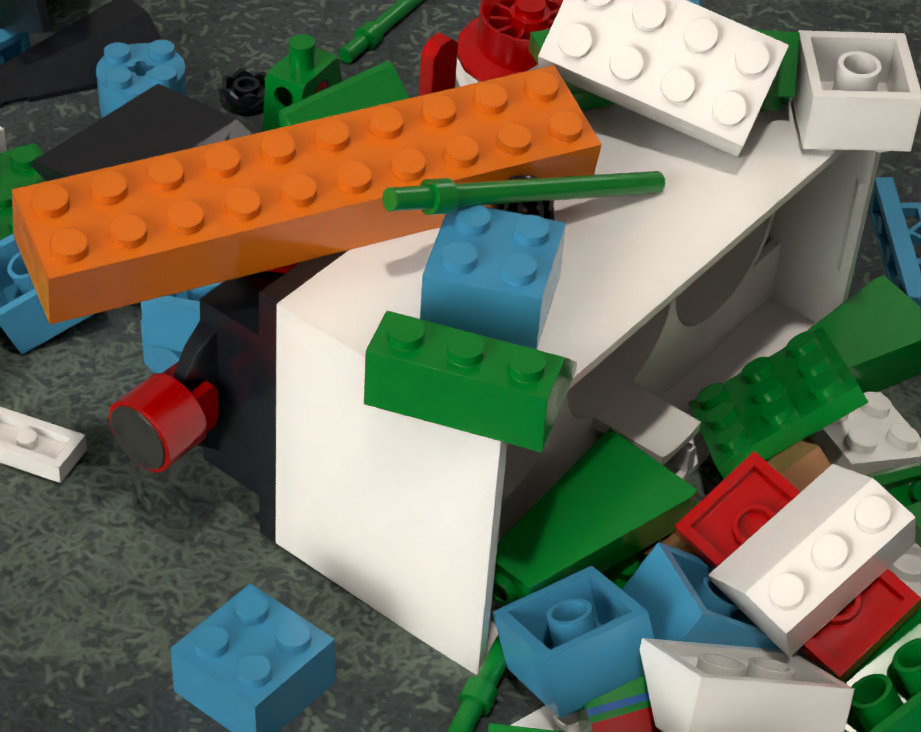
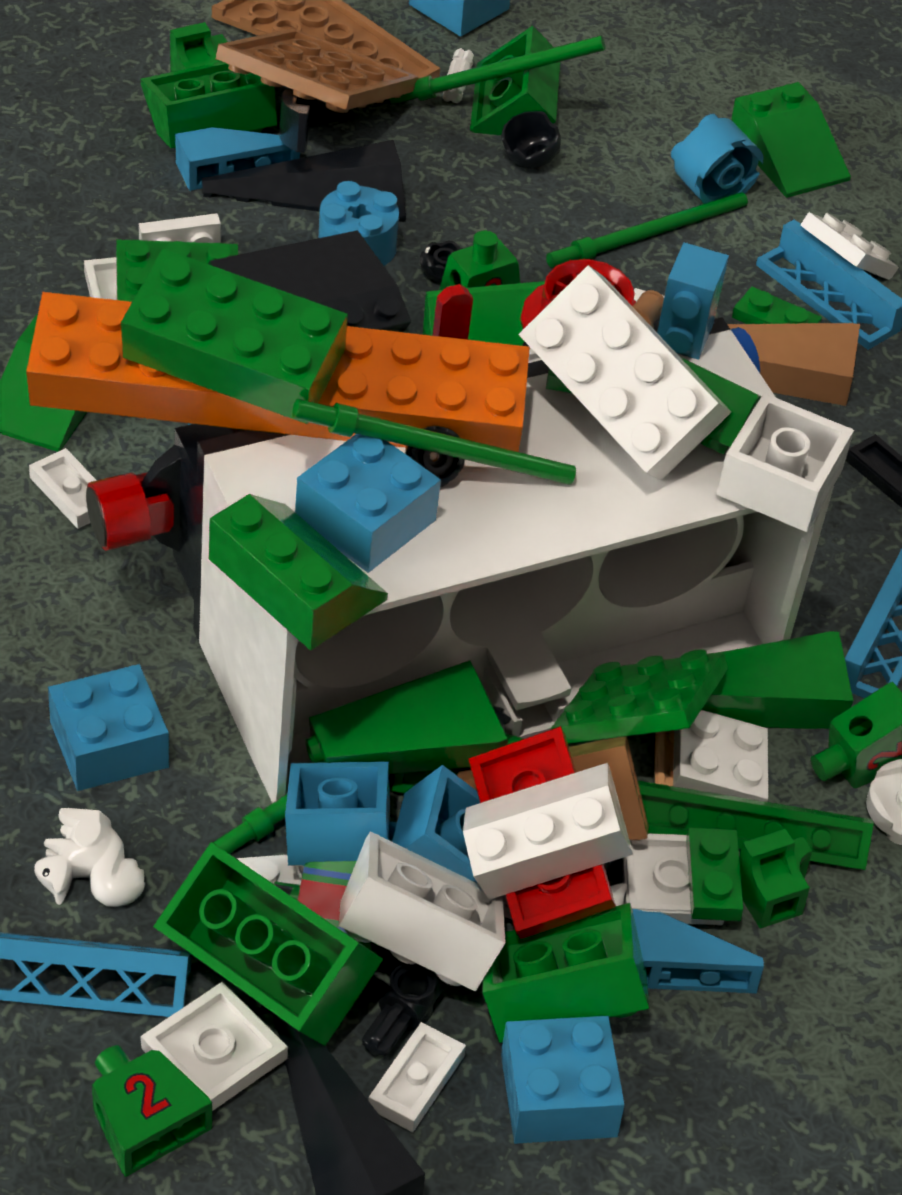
camera: 25 degrees right, 5 degrees up
(269, 152) = (233, 334): none -> green brick

